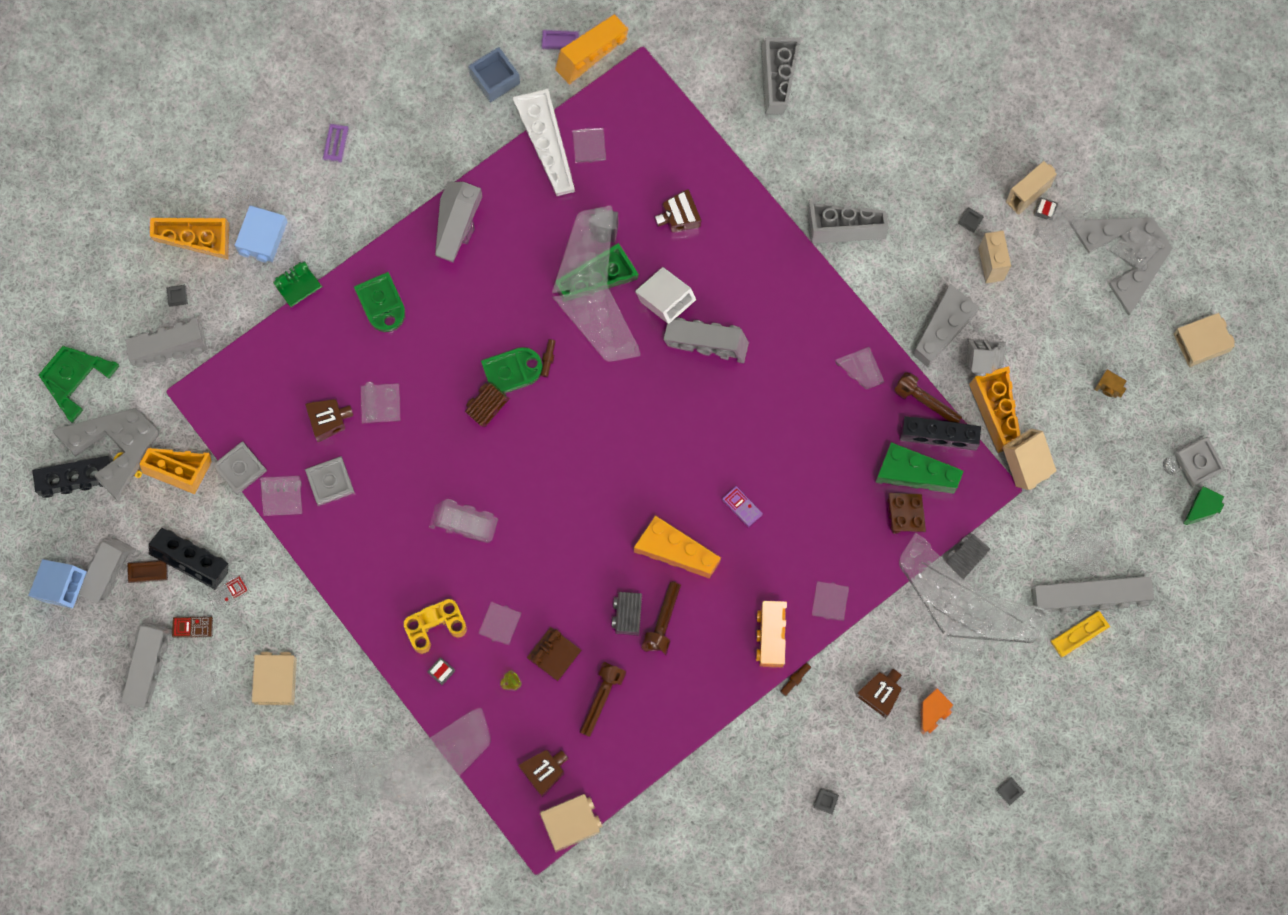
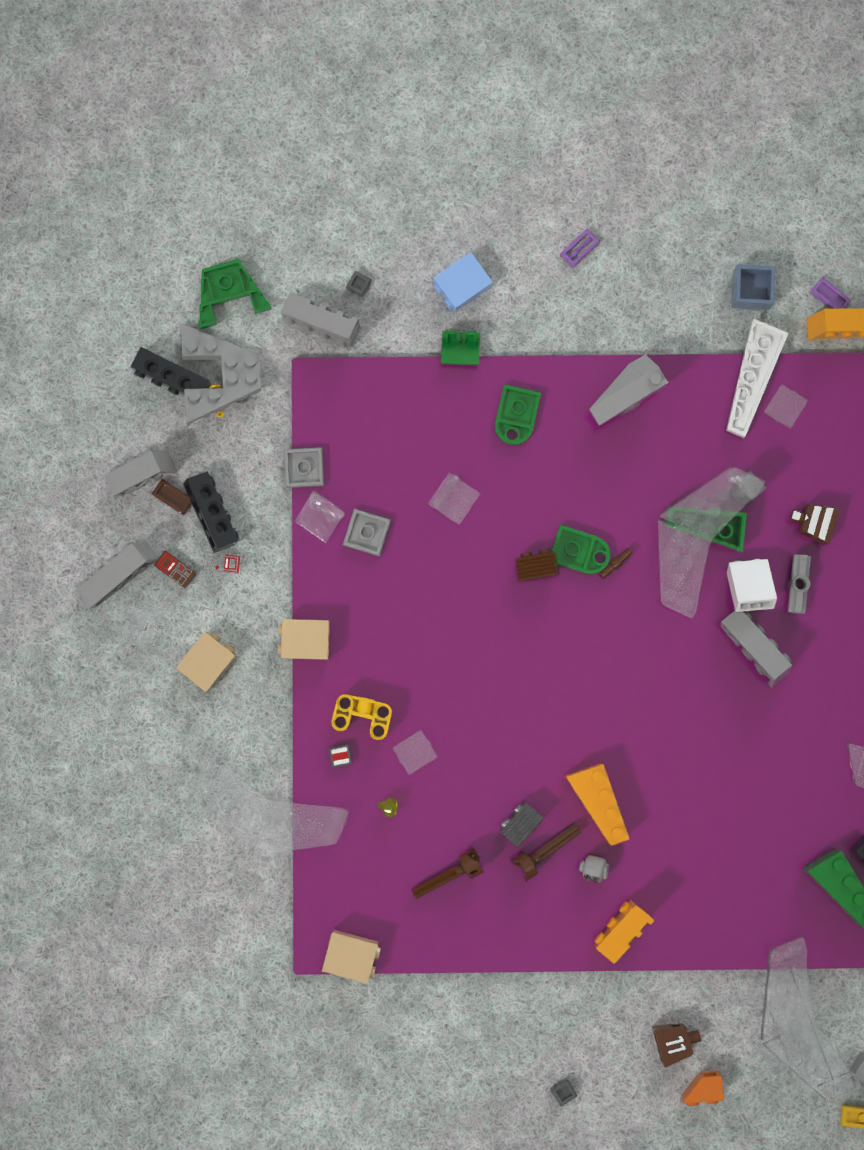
camera: 35 degrees right, 10 degrees up
(57, 583) = (94, 456): light blue brick -> none
(178, 469) = (254, 431): light orange wedge -> none
(194, 234) = (411, 245): light orange wedge -> none
(327, 418) = (402, 479): reddish brown torso -> none
(341, 600) = (304, 639): none -> tan brick
(464, 520) = (447, 648): clear wedge -> none
(544, 770) = (360, 899): reddish brown torso -> none
(554, 654) = (438, 810): reddish brown hinge -> none
(697, 259) = (797, 596): none -> light grey piece
(712, 604) = (594, 869): none -> light grey head
(742, 506) = (679, 806): medium lavender tile -> none
(795, 679) = (614, 977): reddish brown bar -> none
(830, 601) = (690, 937): clear piece -> none
(906, 512) = (808, 914): reddish brown hinge -> none
(967, 556) = (830, 986): flat silver brick -> none

